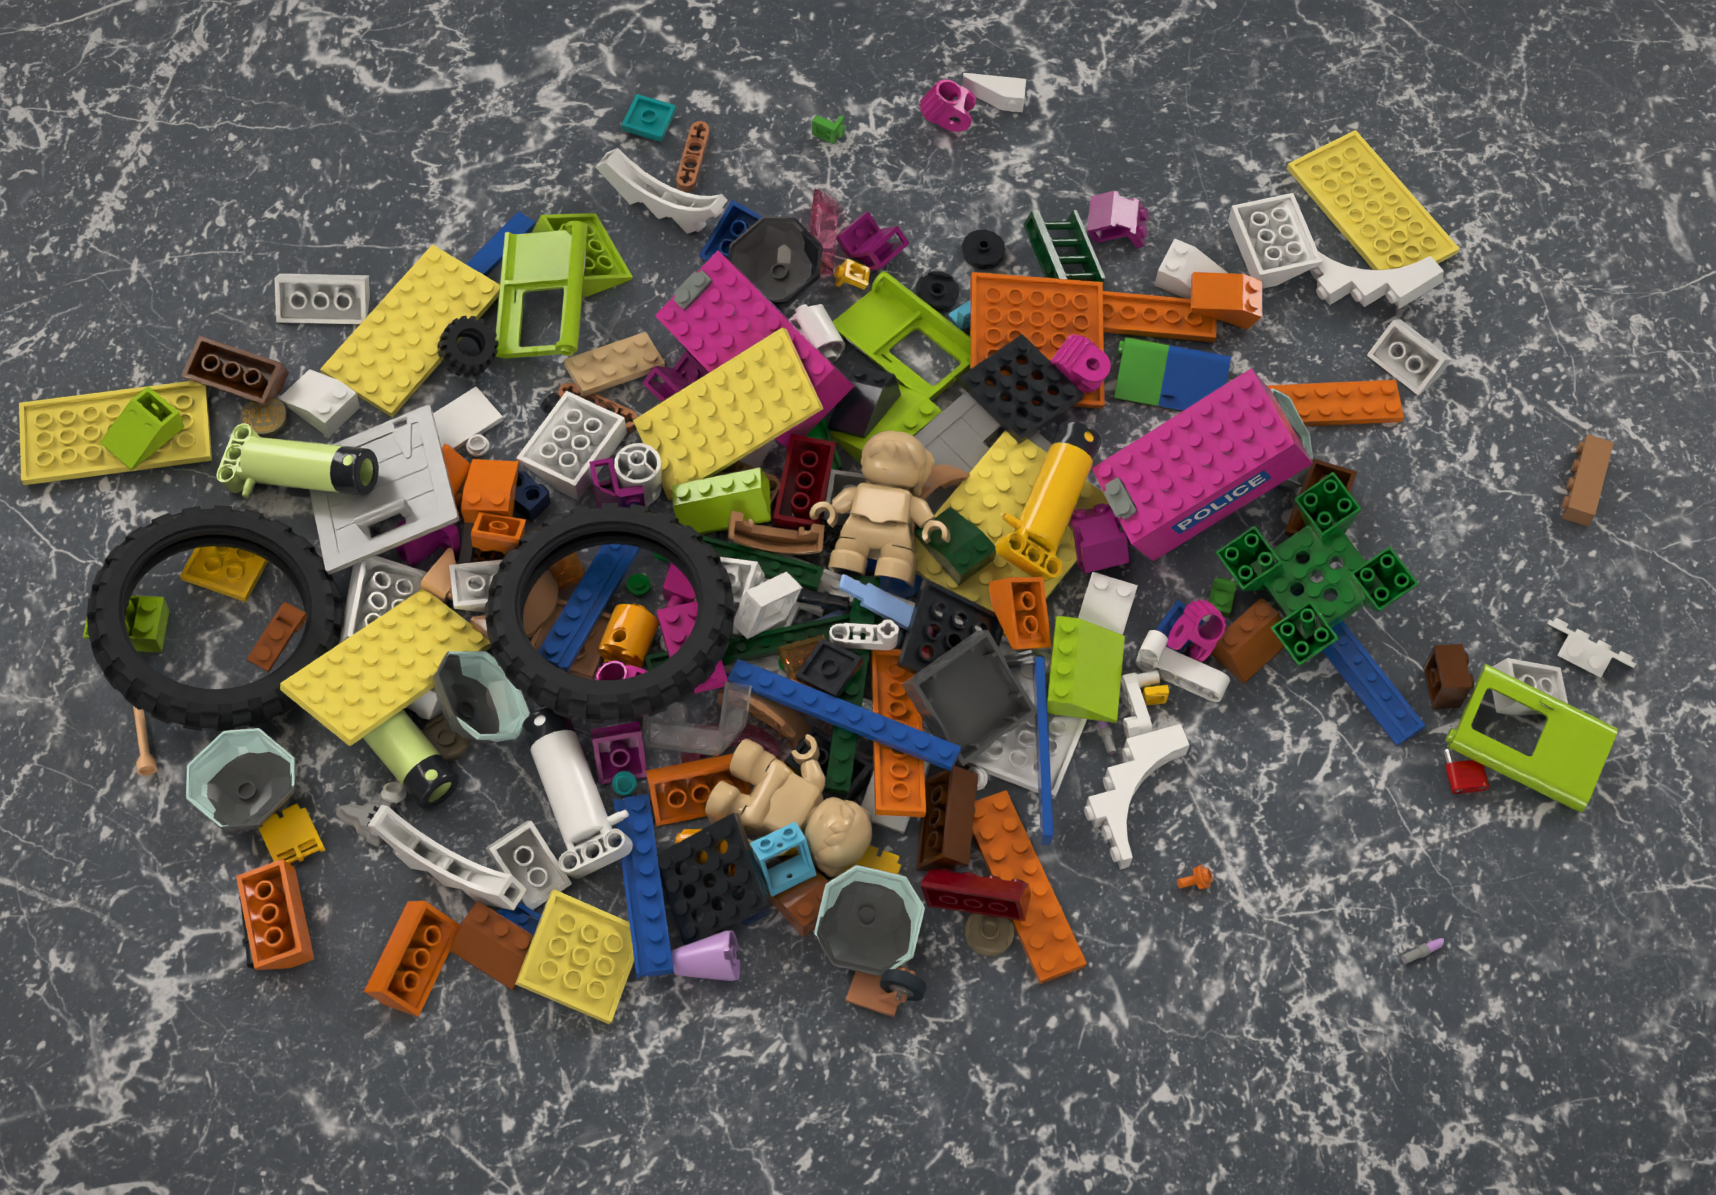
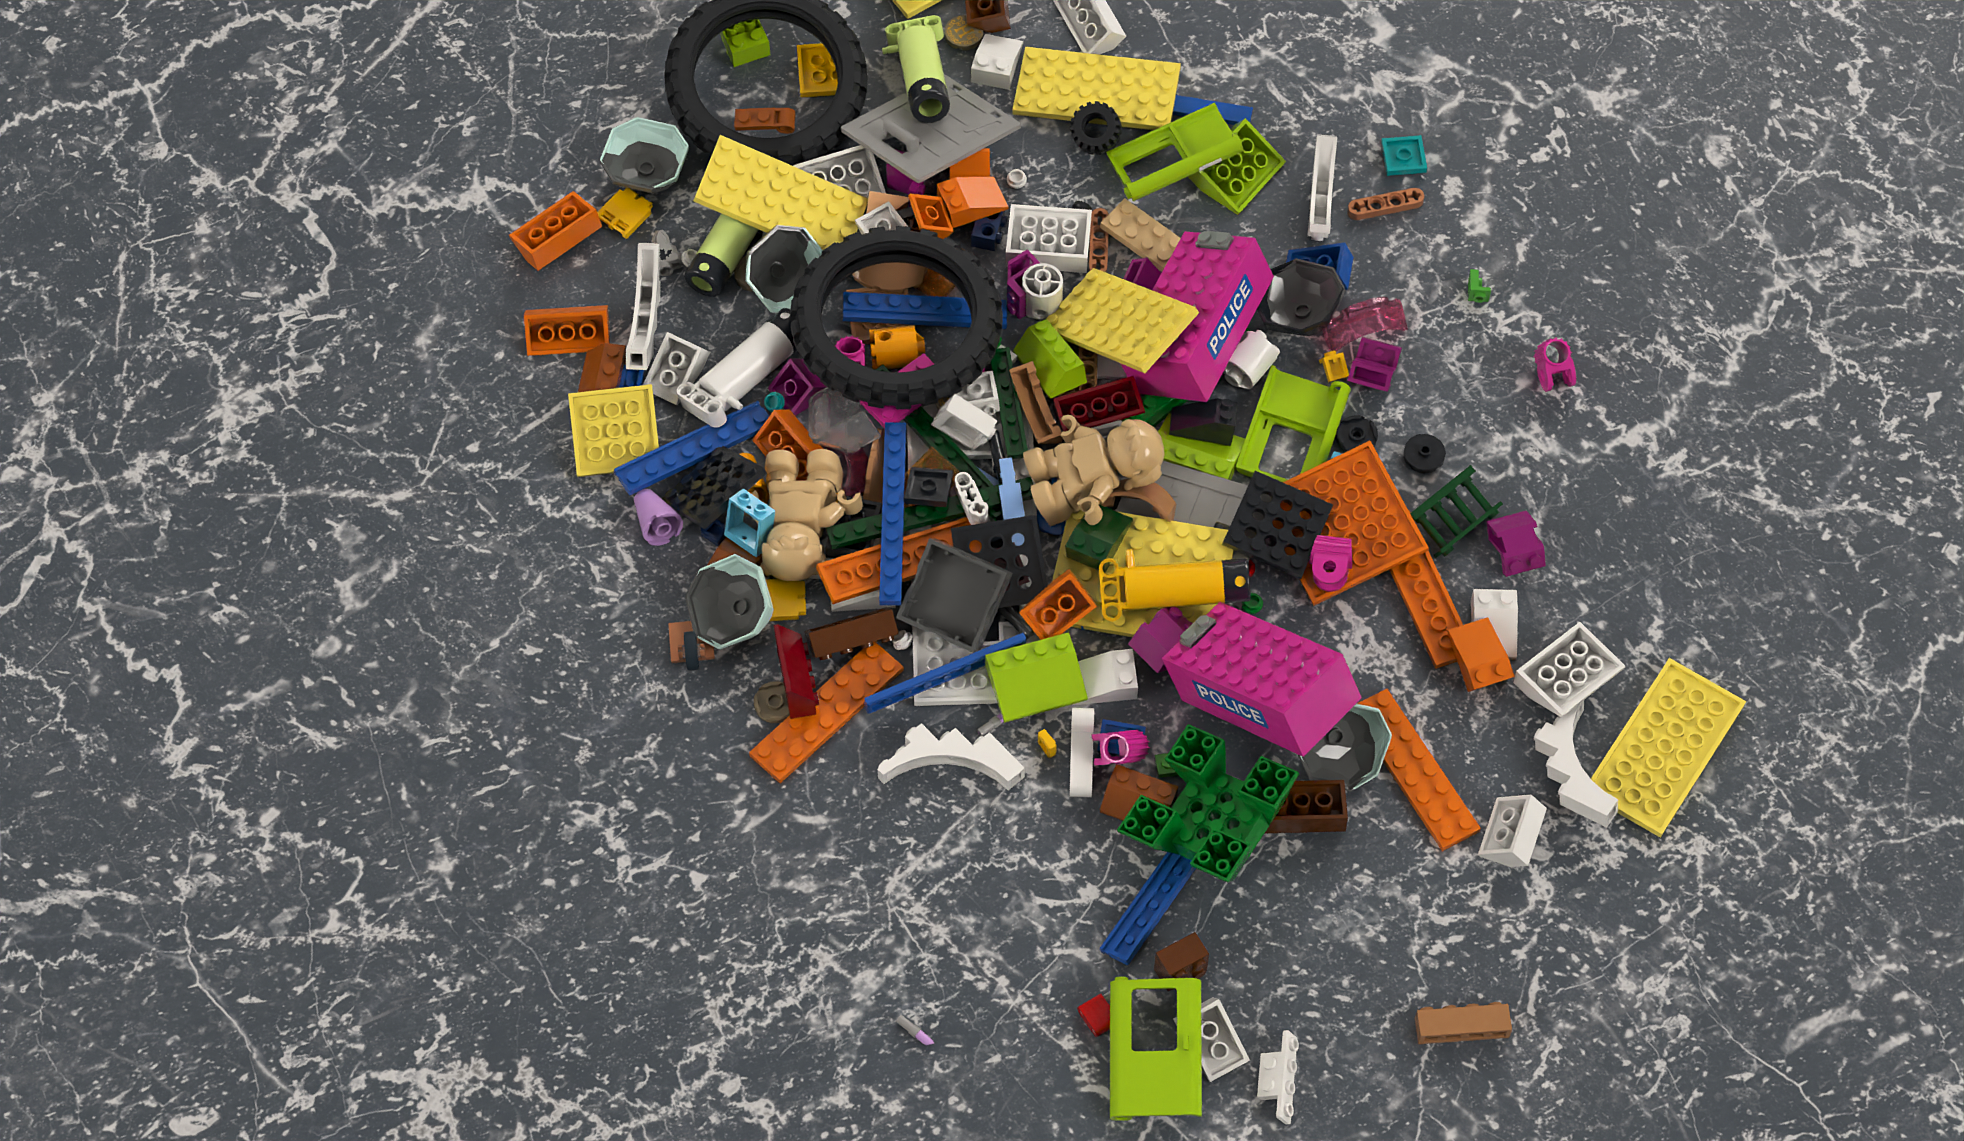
camera: 70 degrees right, 0 degrees up
(146, 763) = (638, 99): light nougat piece -> none
(464, 418) = (1034, 158): white tile -> none
(638, 585) = (951, 339): green plate -> none
(999, 91) = (1603, 404): white slope -> none
(1139, 722) = (1016, 742): white beam -> none
(1167, 374) = (1375, 645): door -> none
(1201, 877) = (898, 838): orange plate -> none

